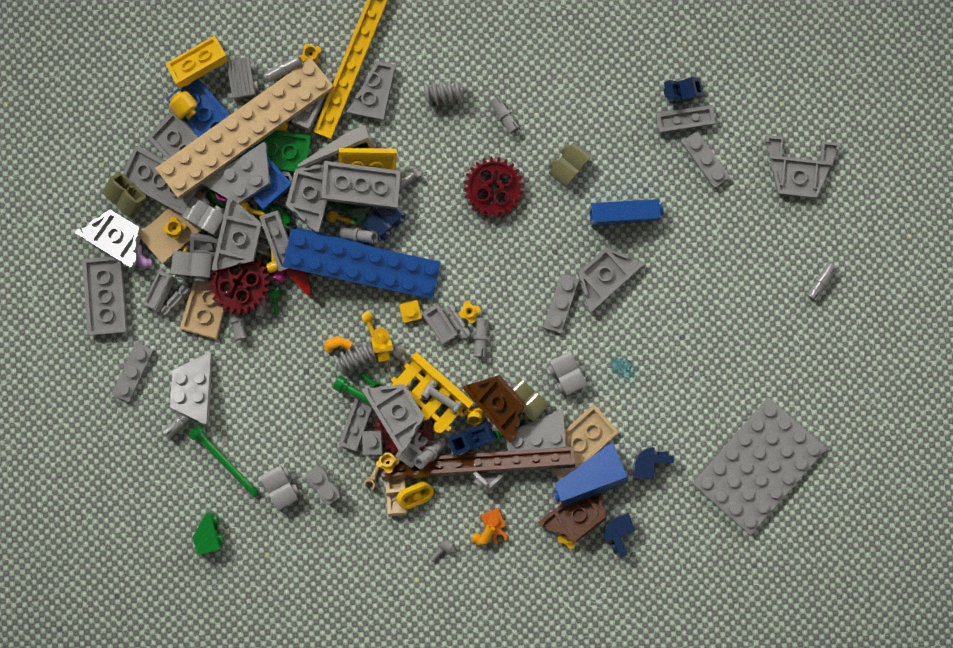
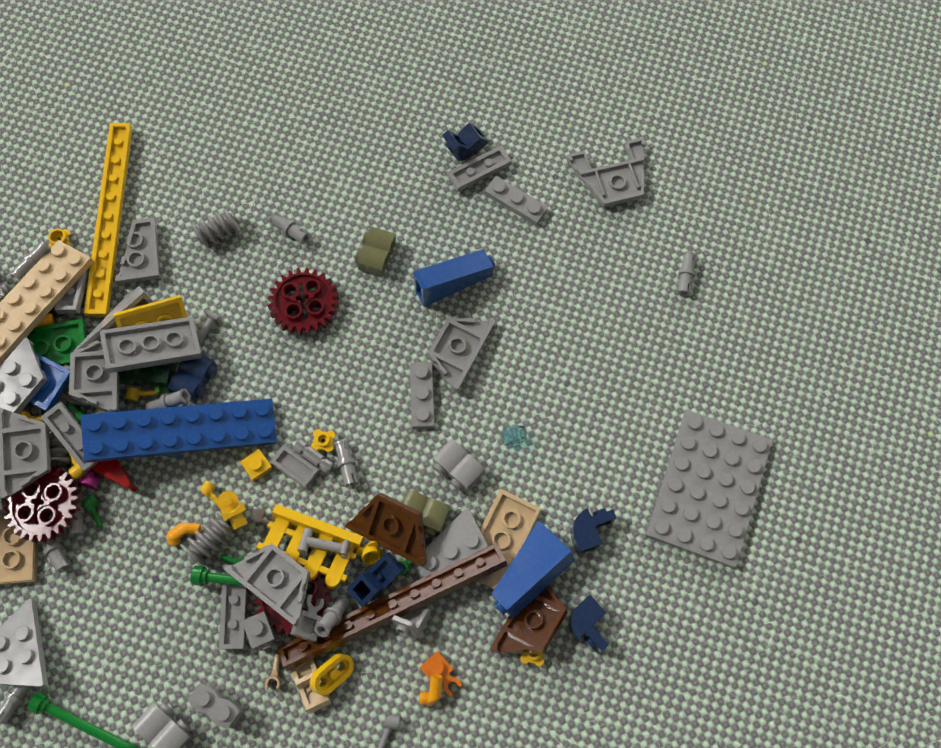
camera: 25 degrees left, 15 degrees down
(387, 457) = (281, 642): yellow plate -> none

